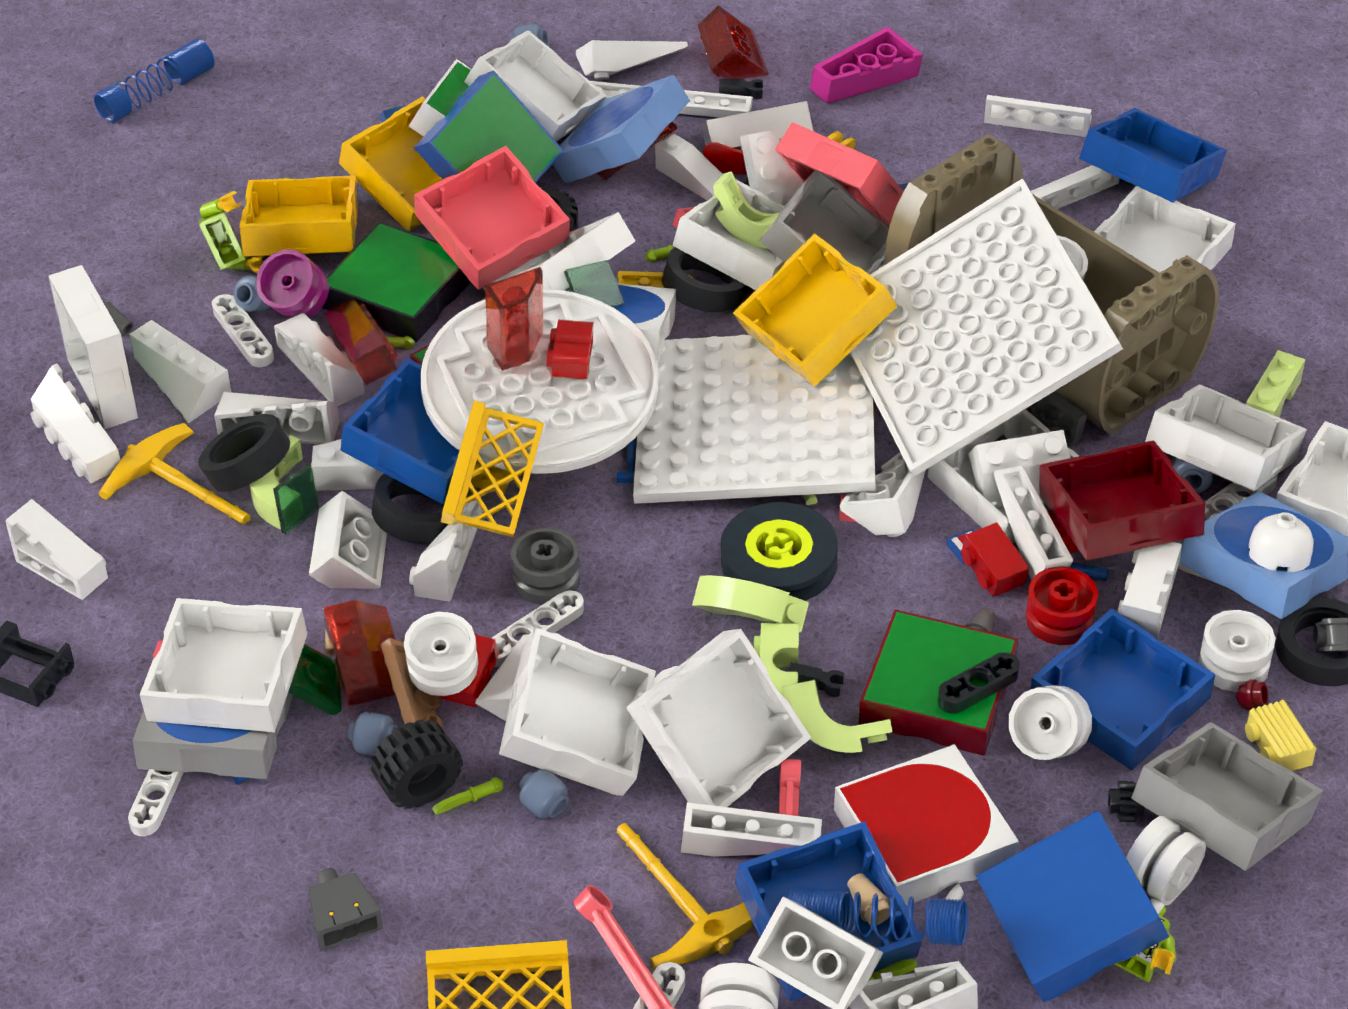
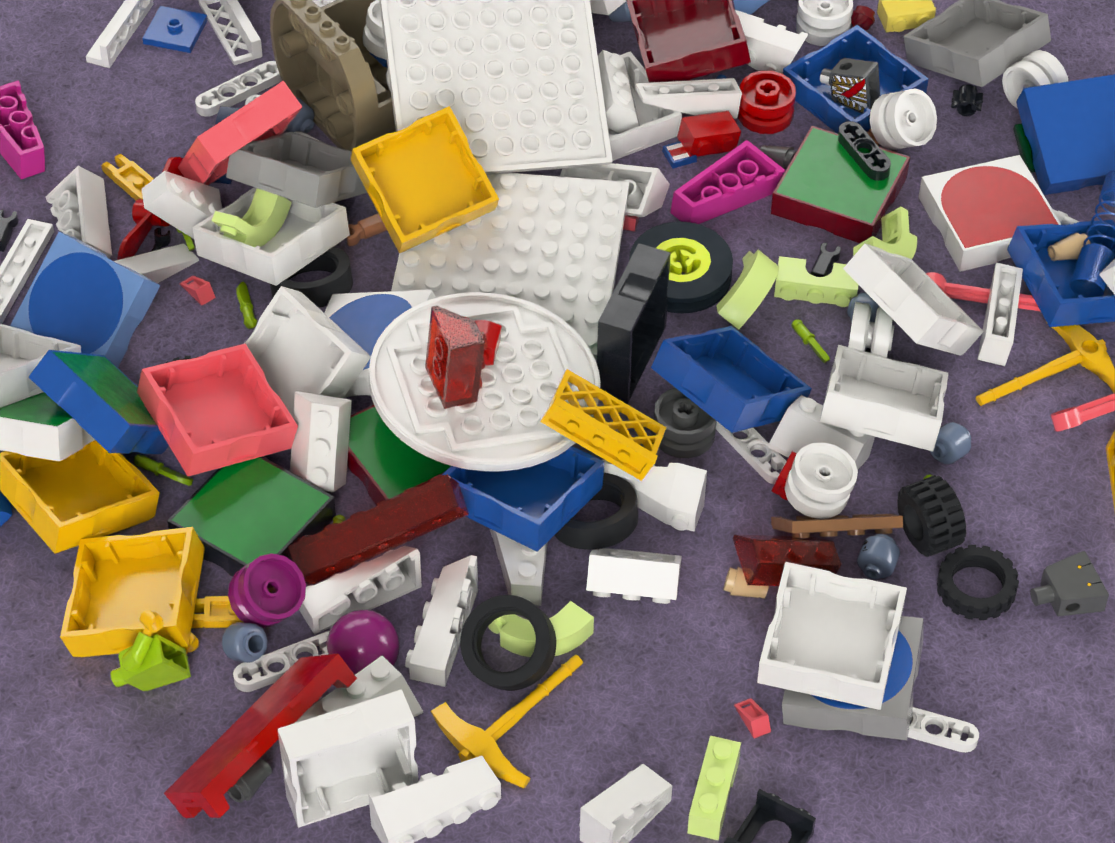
camera: 85 degrees left, 5 degrees up
(105, 618) = (713, 787): none -> yellowish green arch
(187, 322) = (254, 733): none -> red piece
(259, 368) = (363, 638): none -> magenta piece
(296, 499) = (569, 592): clear green piece -> none
(354, 852) = (971, 606): none -> black tyre
(468, 288) = (321, 440): none -> white slope
(592, 580) = (729, 378): none -> blue tile
(595, 281) = (356, 329): clear green piece -> none
(645, 488) = (633, 321): none -> black tile
(909, 574) = (727, 185): none -> dark pink wedge
(1051, 154) = (175, 29): none -> plate
(1109, 669) = (853, 83): none -> torso

